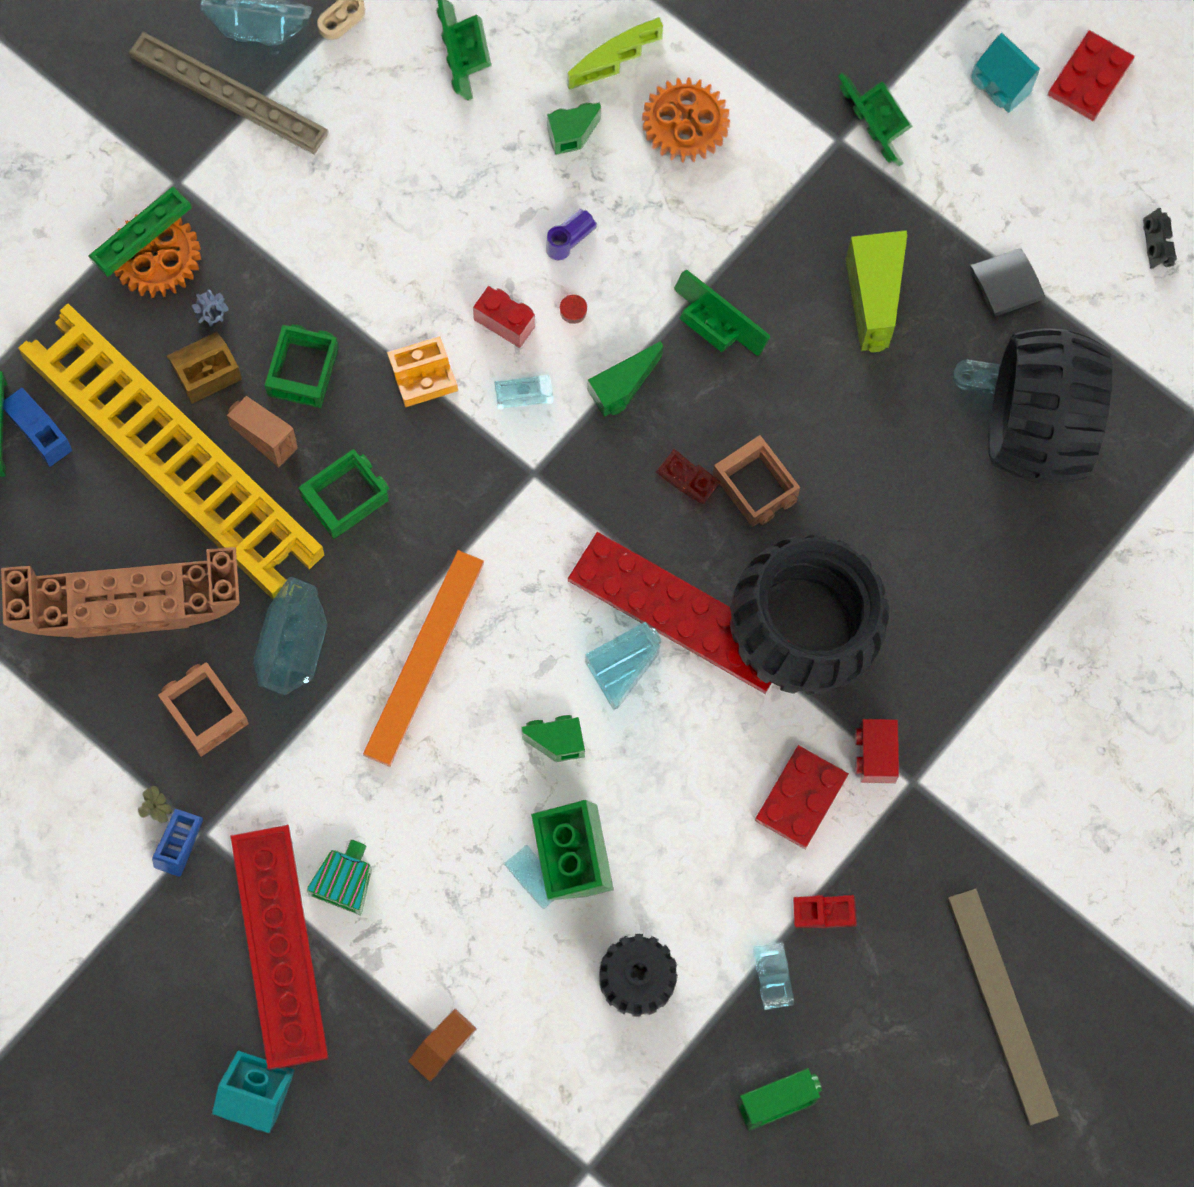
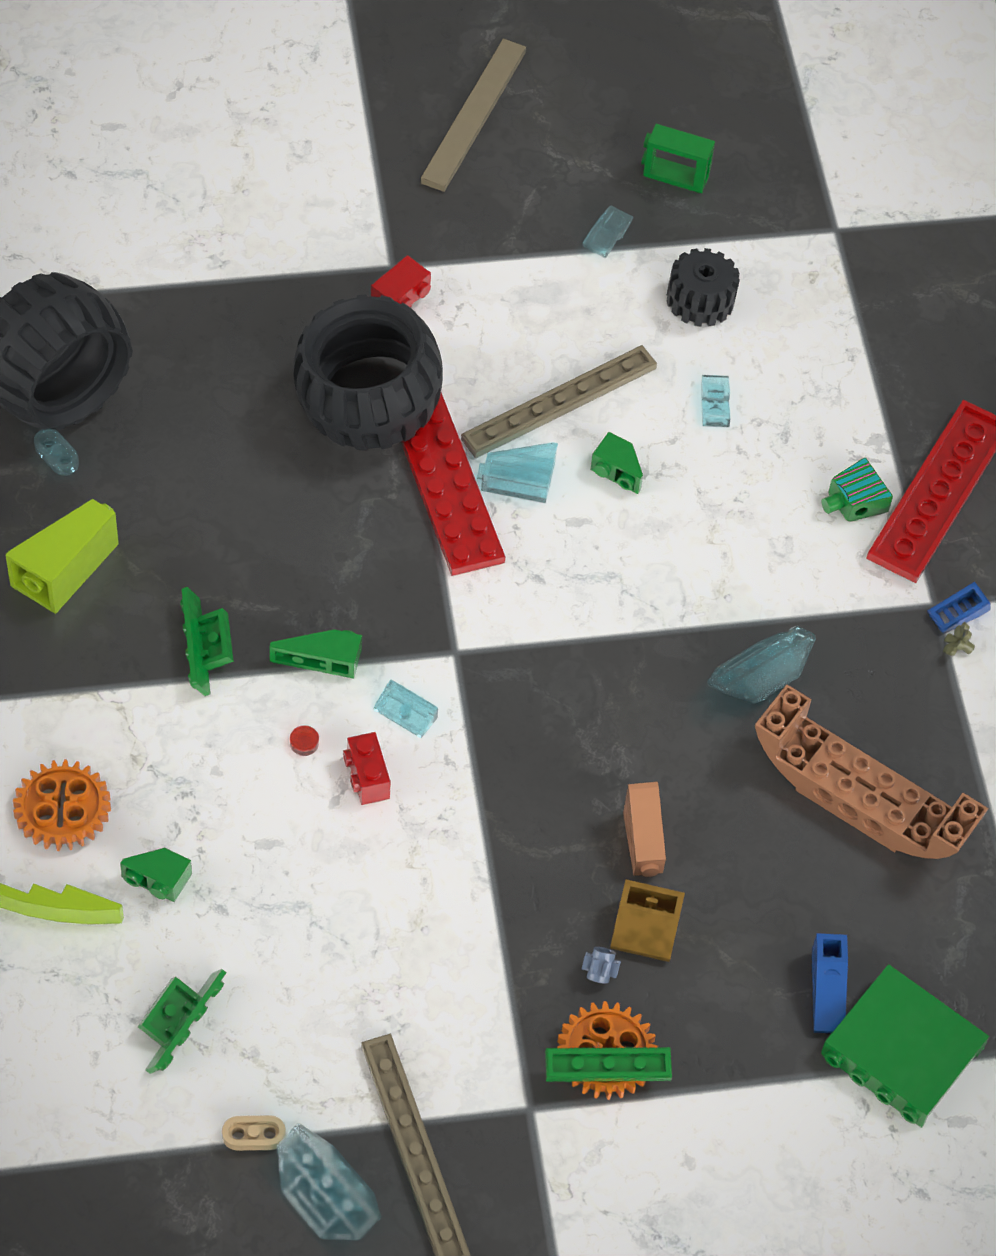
camera: 140 degrees left, 15 degrees down
(182, 430) = (757, 883): yellow ladder -> none
(221, 730) = (866, 651): nougat window -> none
(296, 391) = (588, 842): green window -> none
(309, 490) = (620, 718): green window -> none
(422, 371) = (471, 786): light orange slope -> none
(423, 658) = (662, 590): orange tile -> none
(442, 1044) = (870, 349): dark orange slope -> none
(569, 233) = (248, 791): dark purple piece -> none
(572, 851) = (677, 385): green slope -> none
(658, 767) = (558, 401): none -> dark tan tile
(687, 477) = (344, 556): clear red slope -> none
(741, 458) = (294, 531): nougat window -> none
(801, 797) = (479, 311): red plate -> none
(824, 911) = (531, 239): red slope -> none

